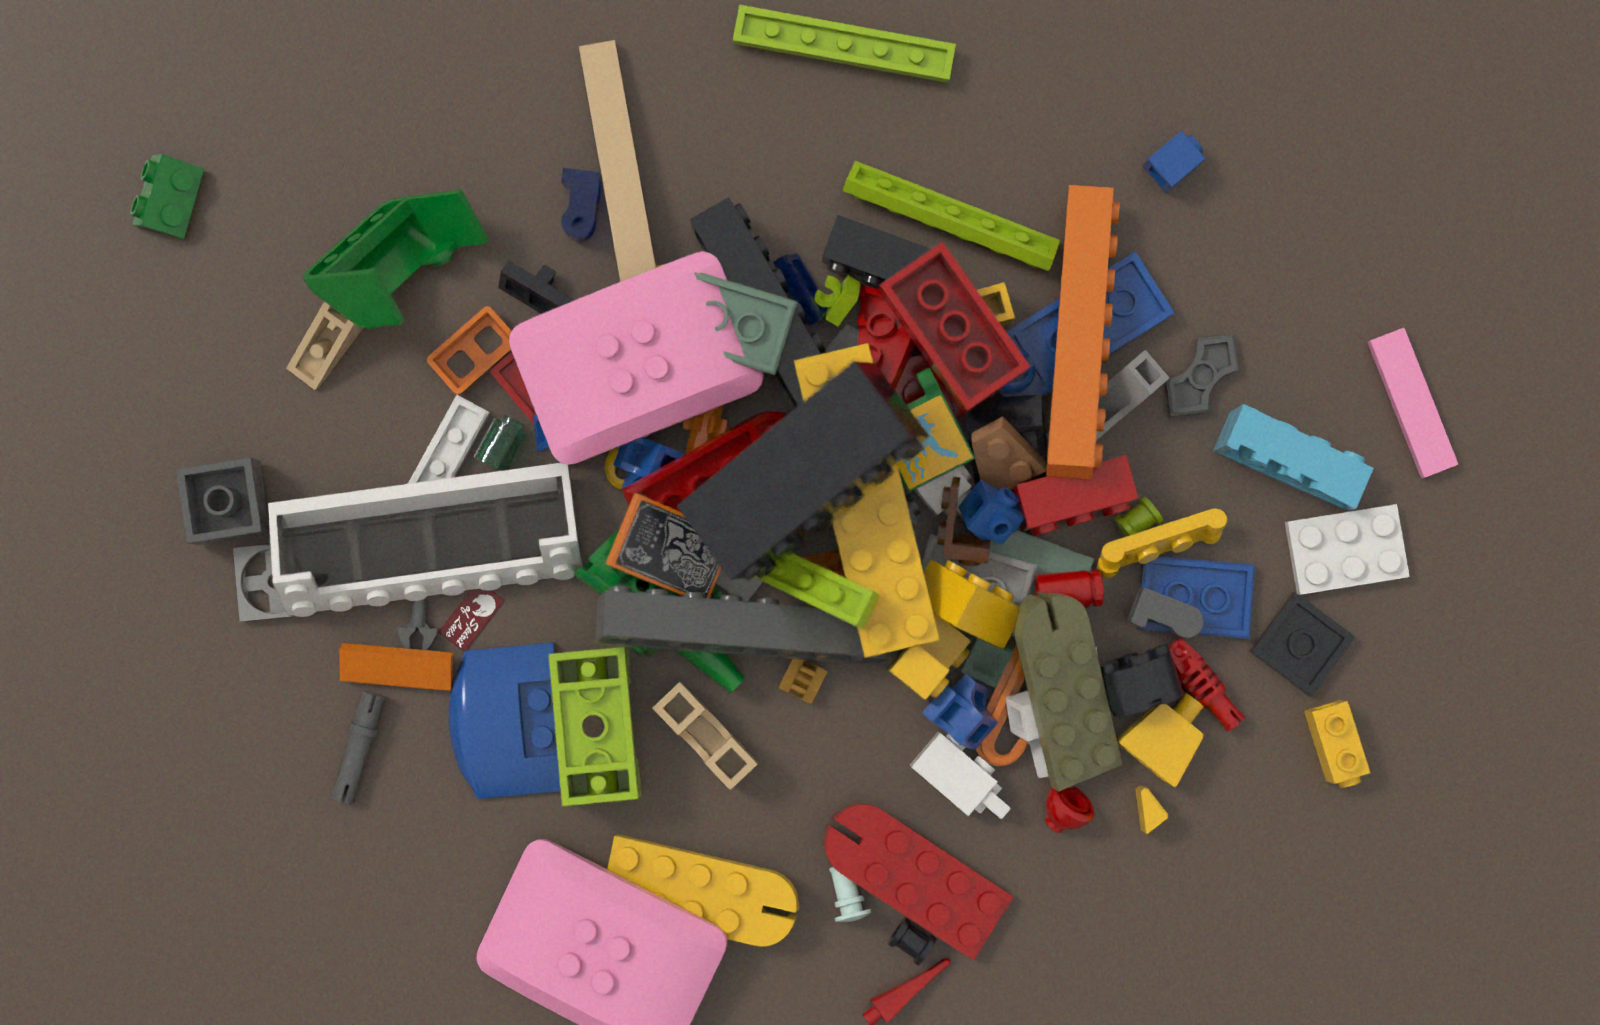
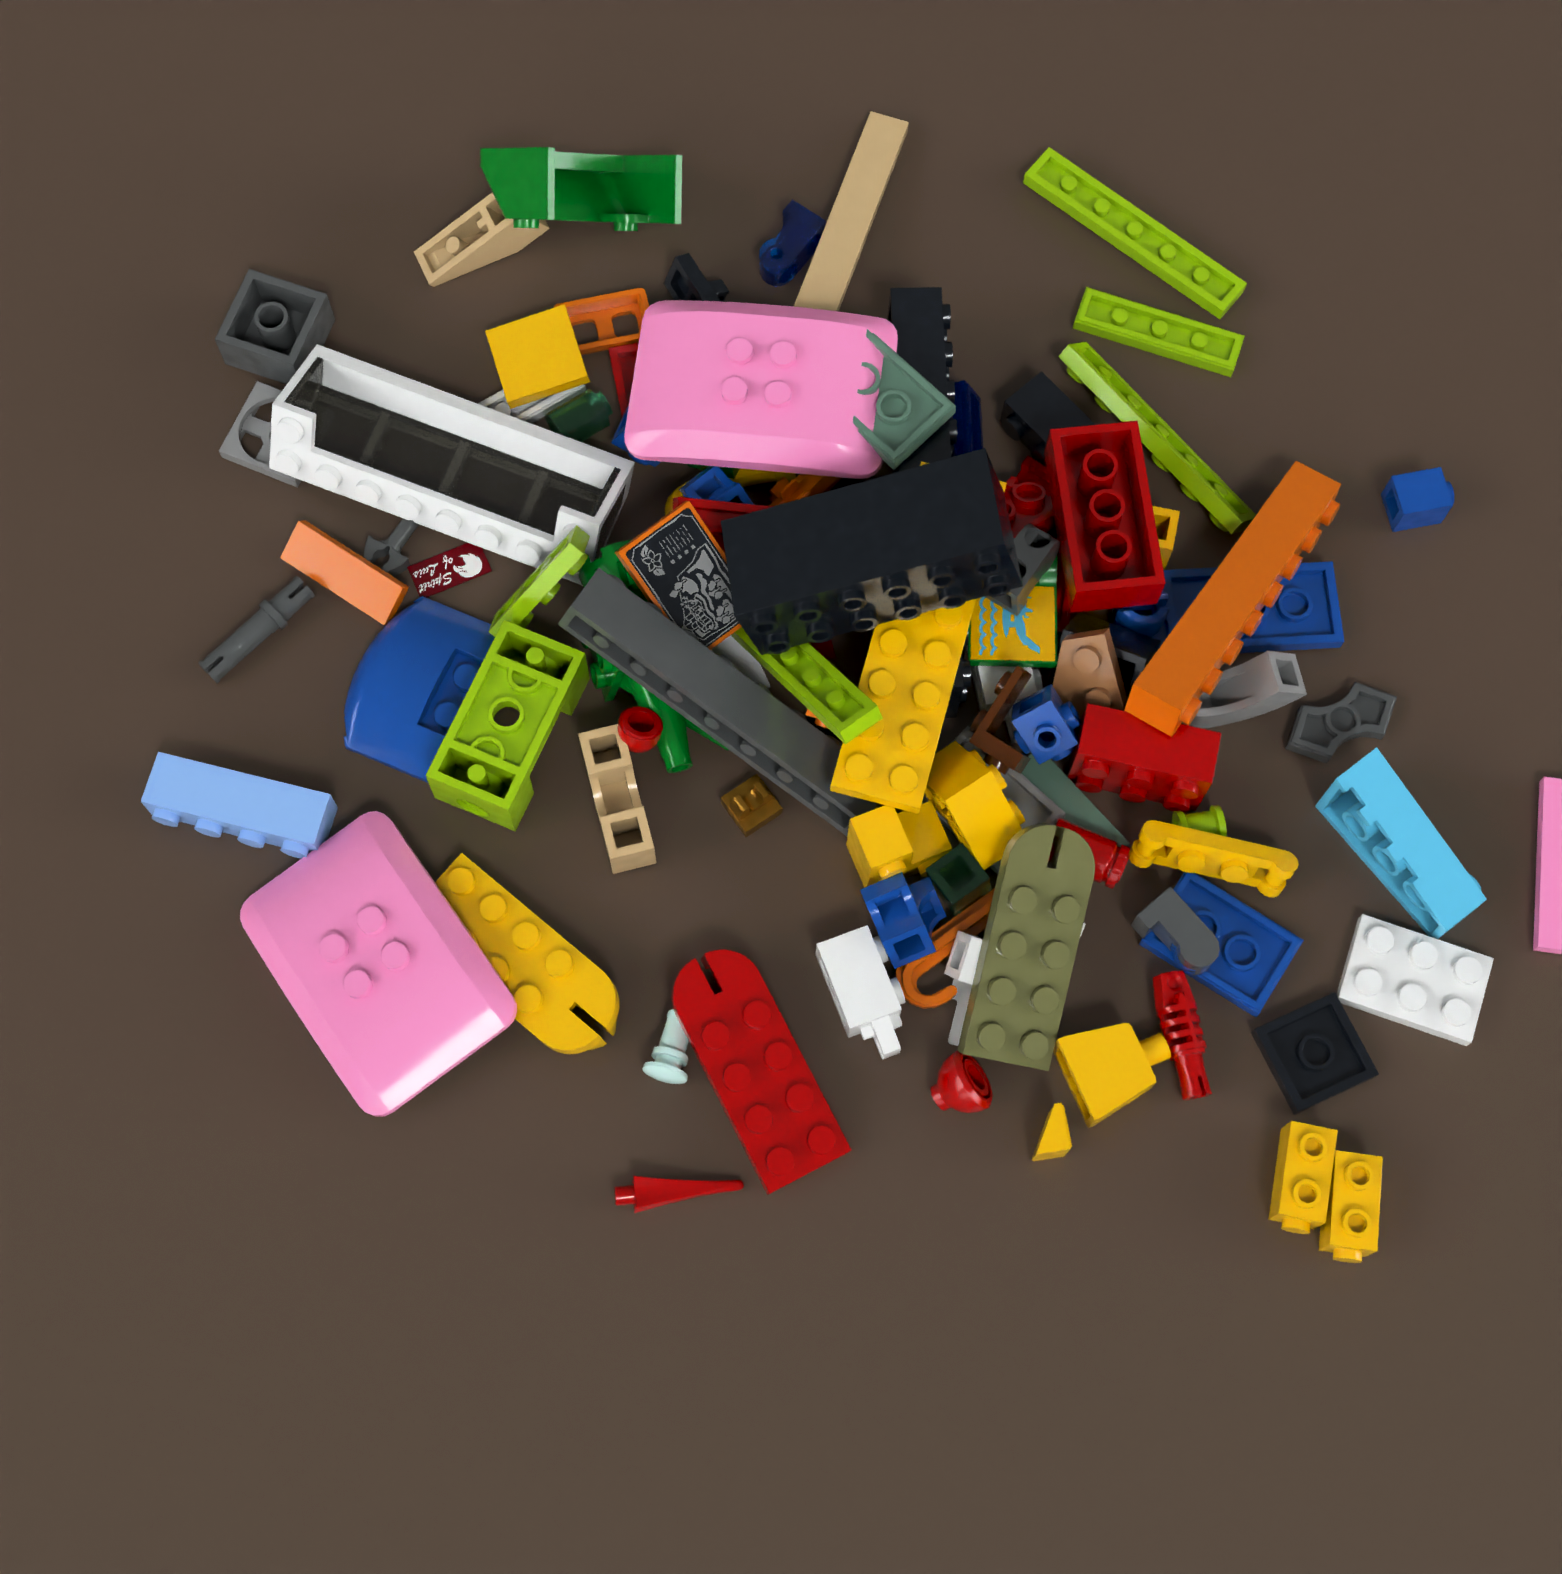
camera: 30 degrees right, 15 degrees down
(166, 195) = (400, 48): green bracket -> none
(430, 889) = (238, 805): none -> light blue brick
(440, 411) = (537, 356): none -> yellow tile
(555, 604) = (543, 582): none -> lime plate
(694, 677) = (639, 728): none -> red piece
(840, 301) = (1004, 450): lime tile -> none
(906, 119) = (1158, 332): none -> lime tile
(912, 941) = (713, 1136): black bush -> none
(914, 388) = (1035, 555): none -> dark grey leg
(1141, 681) = (1115, 986): black brick -> none
(1382, 746) = (1353, 1207): none -> yellow brick

